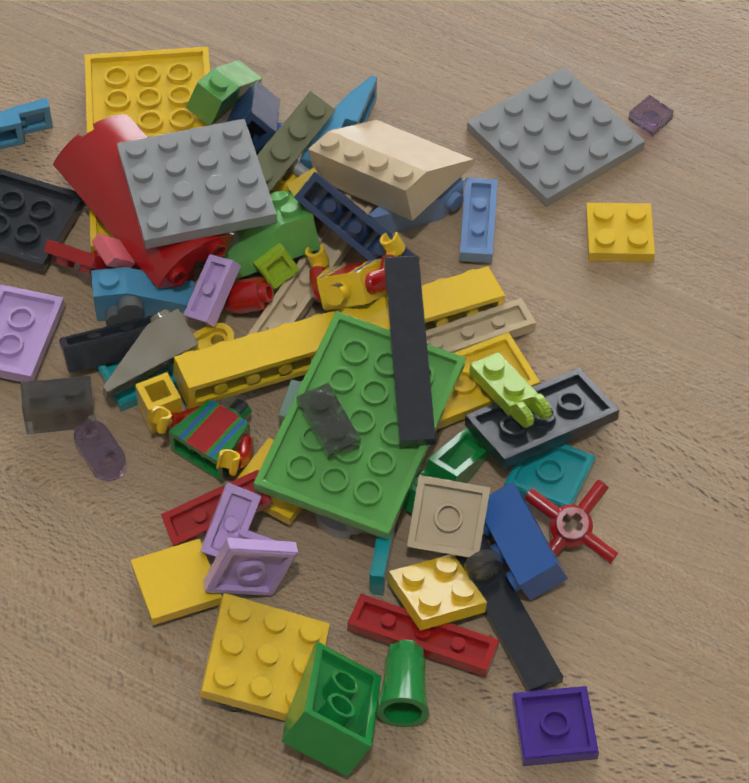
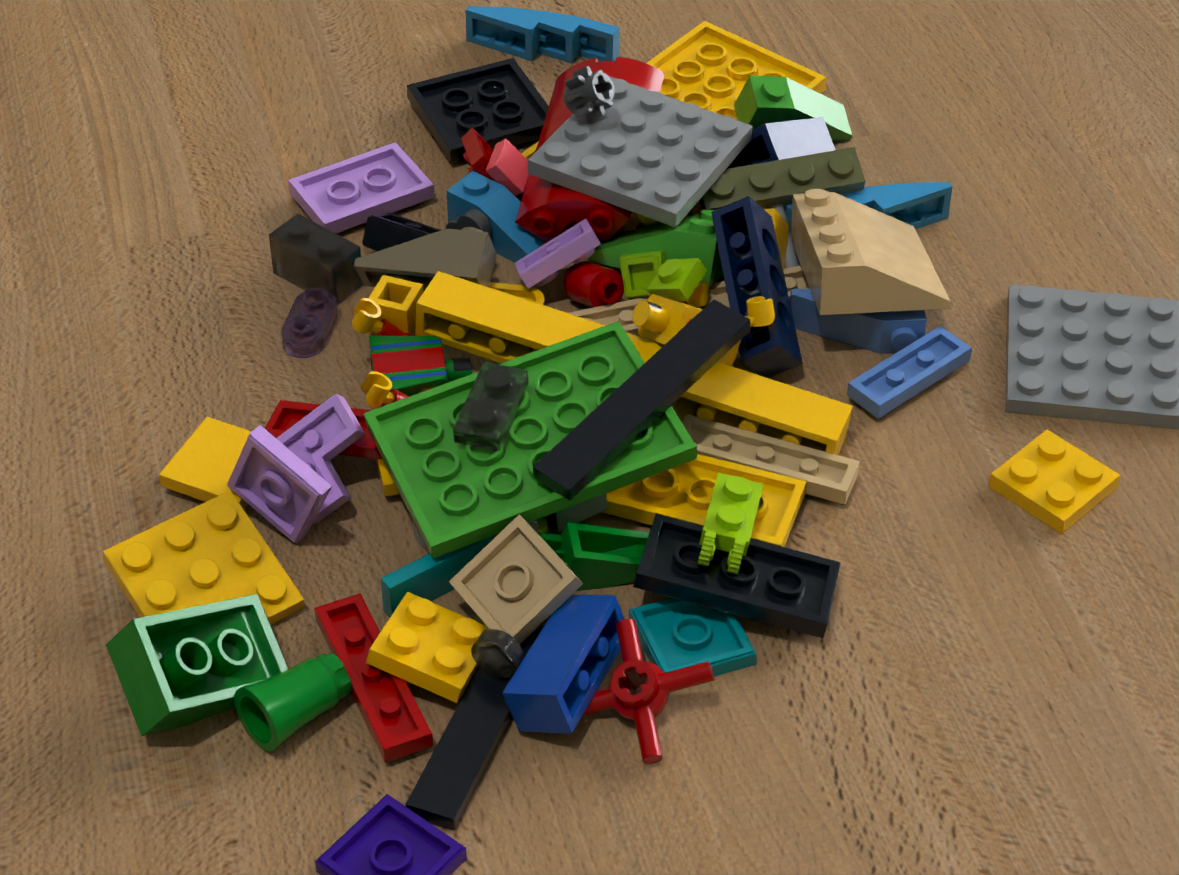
camera: 45 degrees right, 10 degrees down
(143, 167) = (588, 93): none -> dark grey gear
(308, 257) = (677, 278): none -> lime plate

